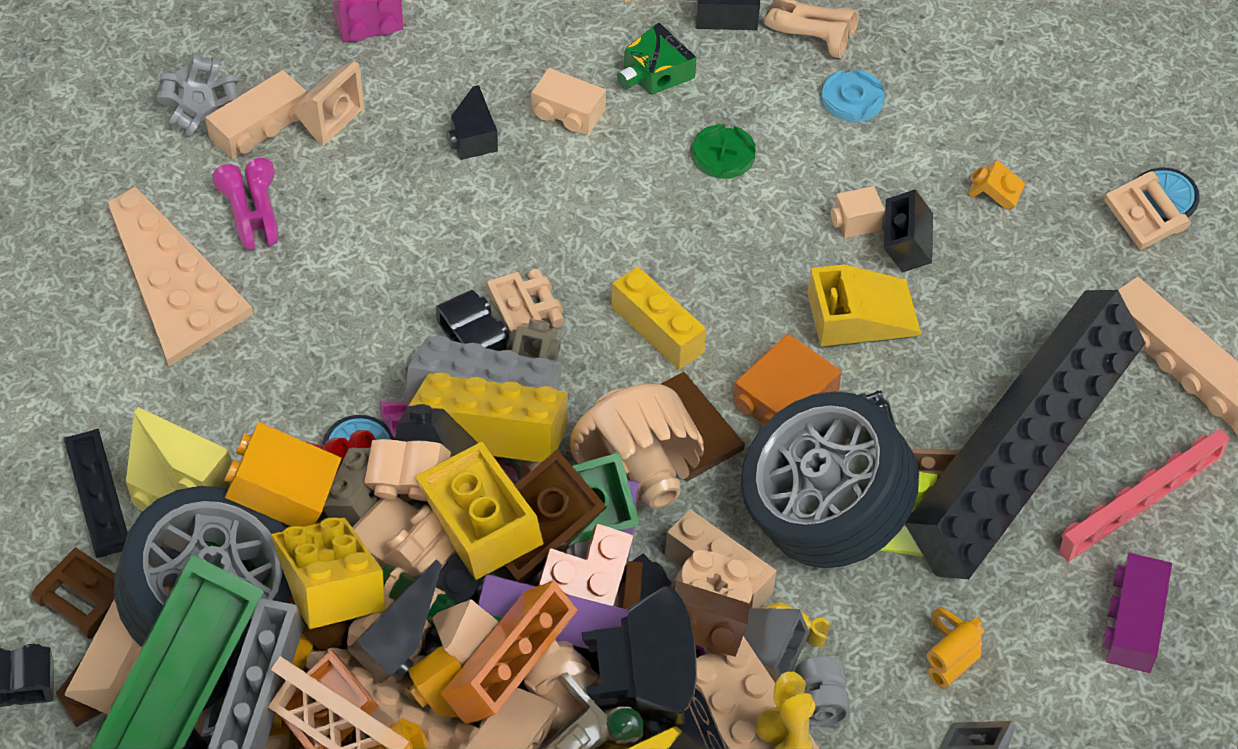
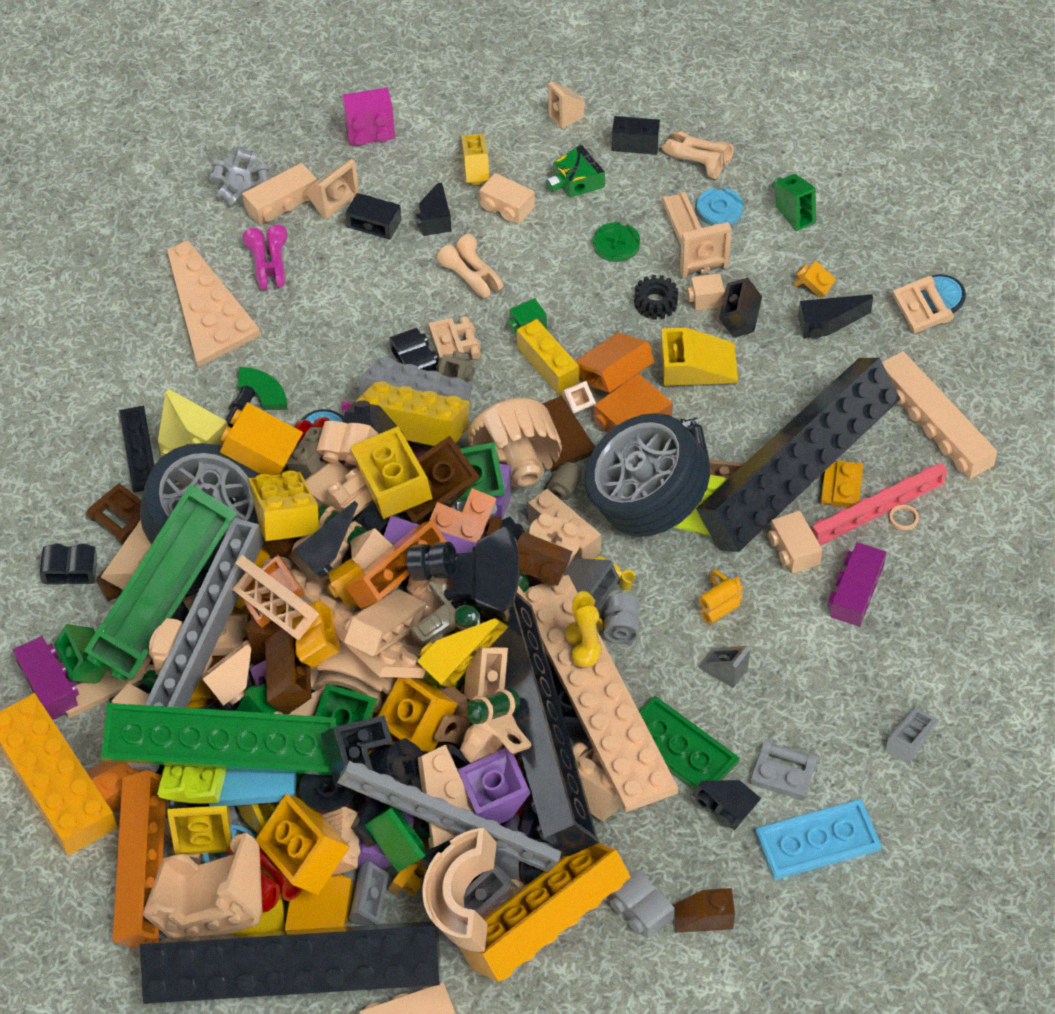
camera: 10 degrees right, 0 degrees up
(236, 420) = (245, 395): none -> black pin
(266, 389) = (266, 388): none -> green tile
(389, 137) = (373, 216): none -> black brick
(517, 50) = (475, 158): none -> yellow slope
(549, 215) = (466, 250): none -> light nougat piece
(572, 646) = (434, 561): none -> black wheel
(618, 261) = (526, 313): none -> green brick
(709, 372) = (578, 397): none -> light nougat brick
(709, 493) = (565, 480): none -> dark tan brick
(752, 319) = (614, 361): none -> orange brick
(790, 209) = (656, 307): none -> black tyre
(840, 153) = (700, 246): none -> light nougat bracket
(954, 80) = (795, 200): none -> green torso
(1023, 234) = (829, 315): none -> black slope
(1042, 558) = (795, 542): none -> light nougat brick
(1088, 469) = (842, 484): none -> light orange plate
(1186, 496) = (907, 507): none -> light nougat piece

